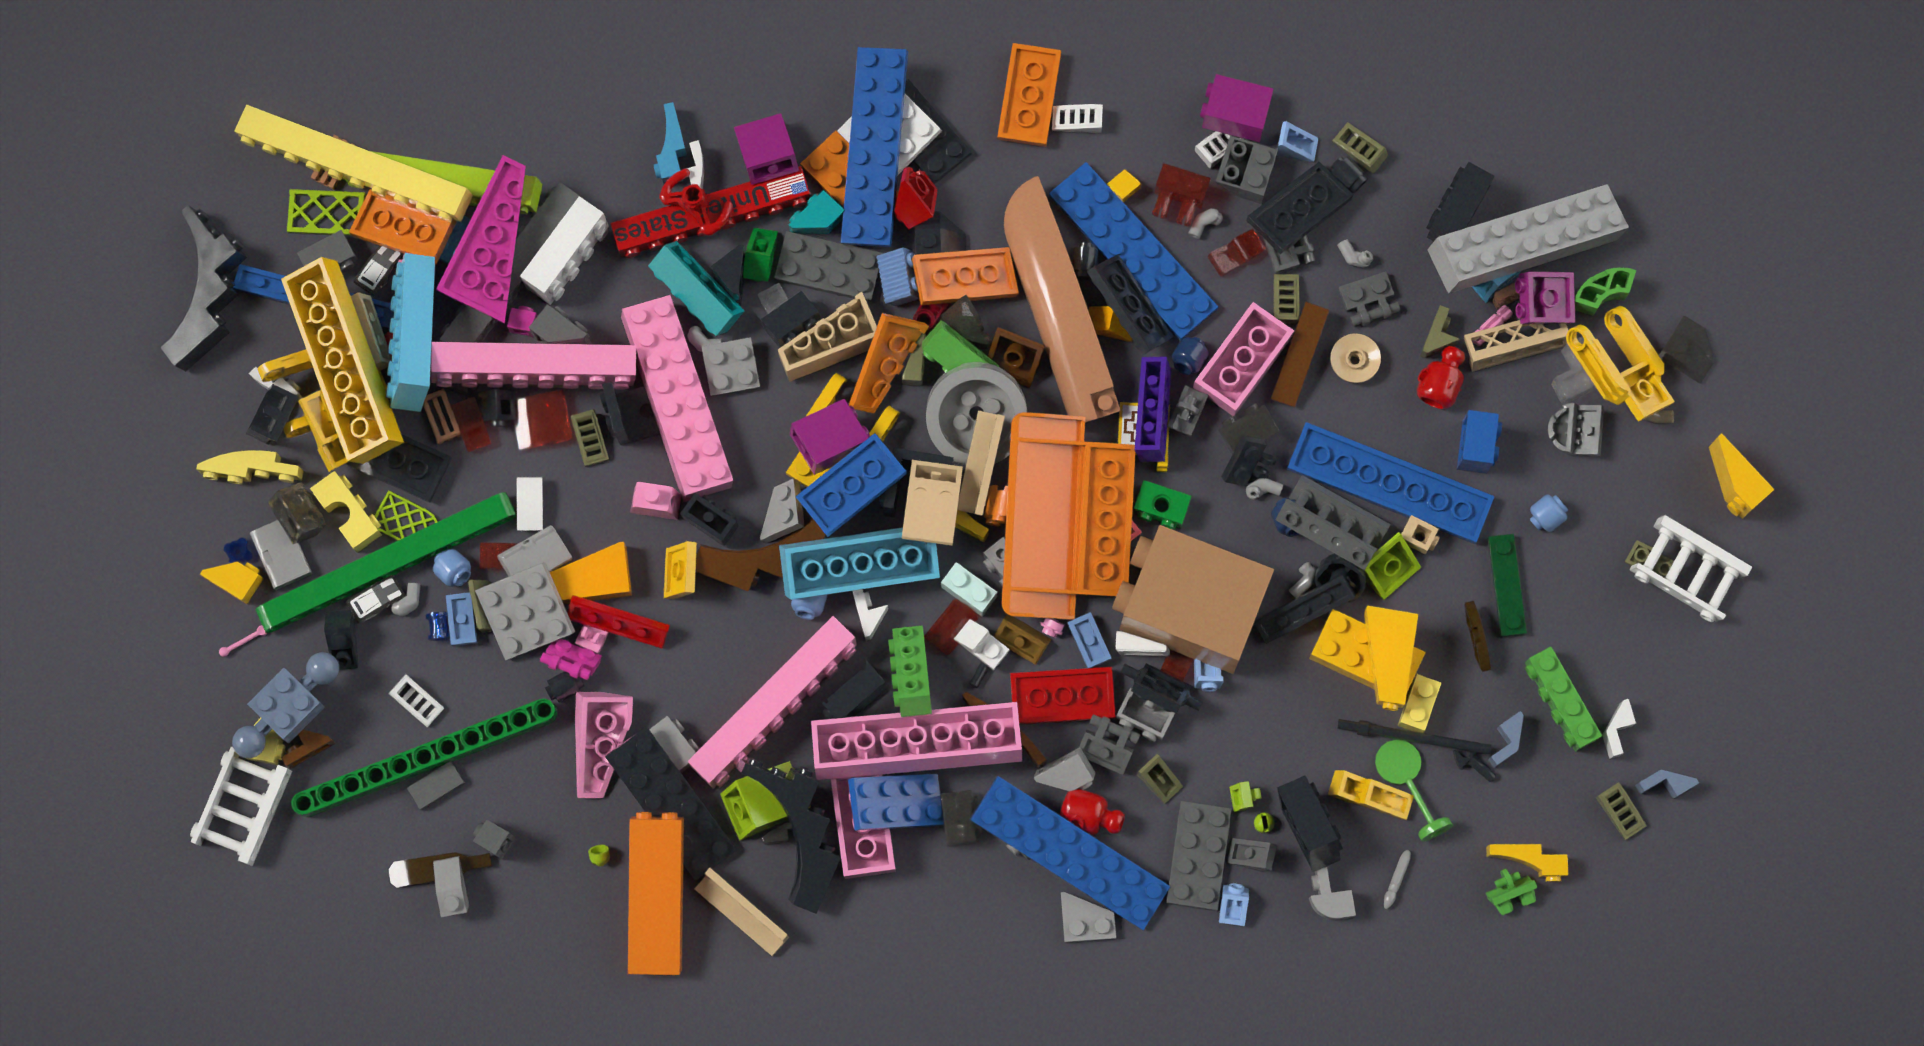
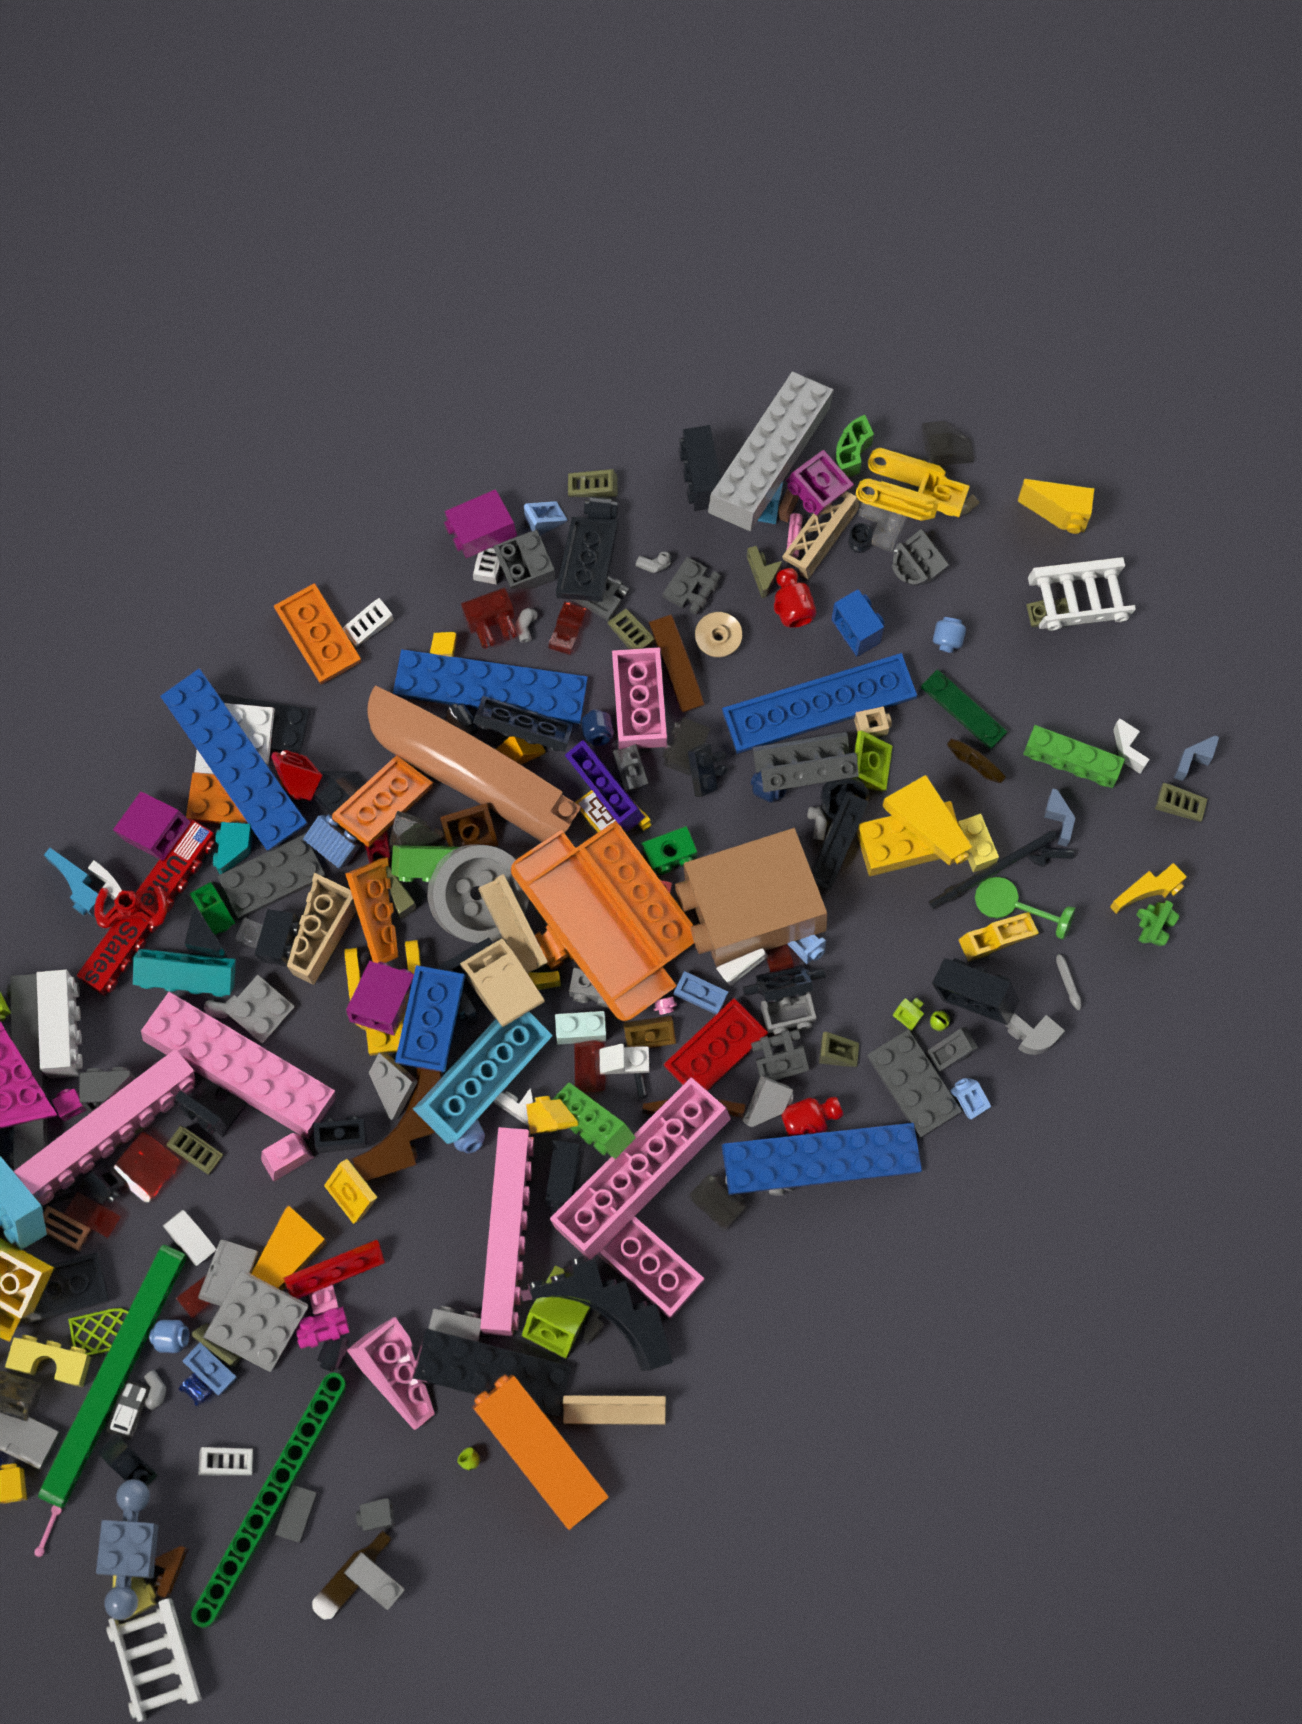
camera: 45 degrees left, 5 degrees down
(882, 639) = (549, 1115): none -> yellow slope
(895, 802) = (662, 1228): blue plate -> none
(1085, 920) = (873, 1200): light grey wing -> none
(1262, 486) = (729, 780): light grey arm -> none
(1547, 367) = (863, 533): none -> black wheel

